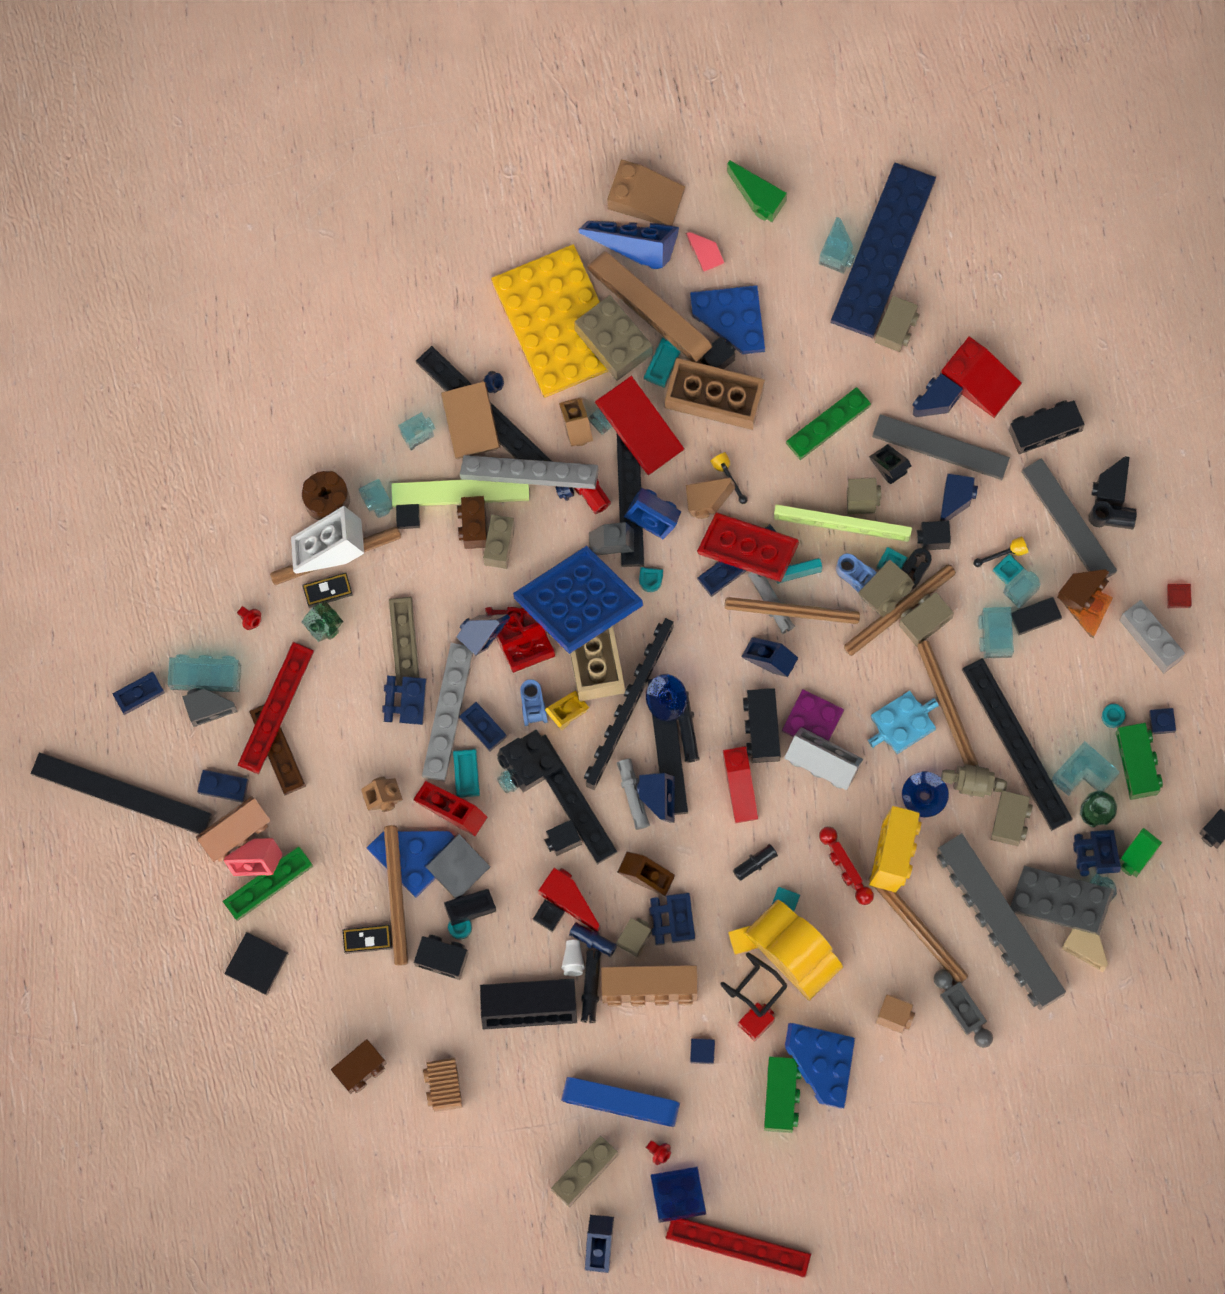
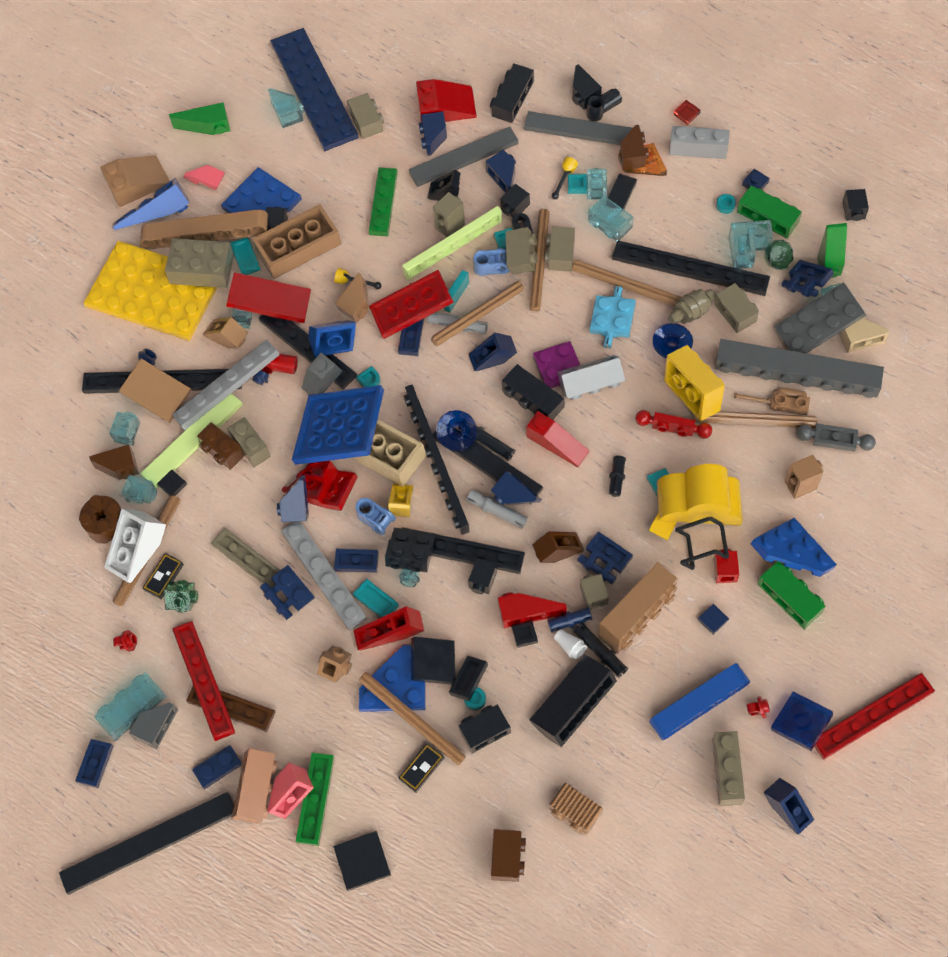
camera: 45 degrees left, 10 degrees down
(383, 457) = (116, 462): none -> reddish brown slope
(954, 934) = (781, 400): none -> medium nougat piece

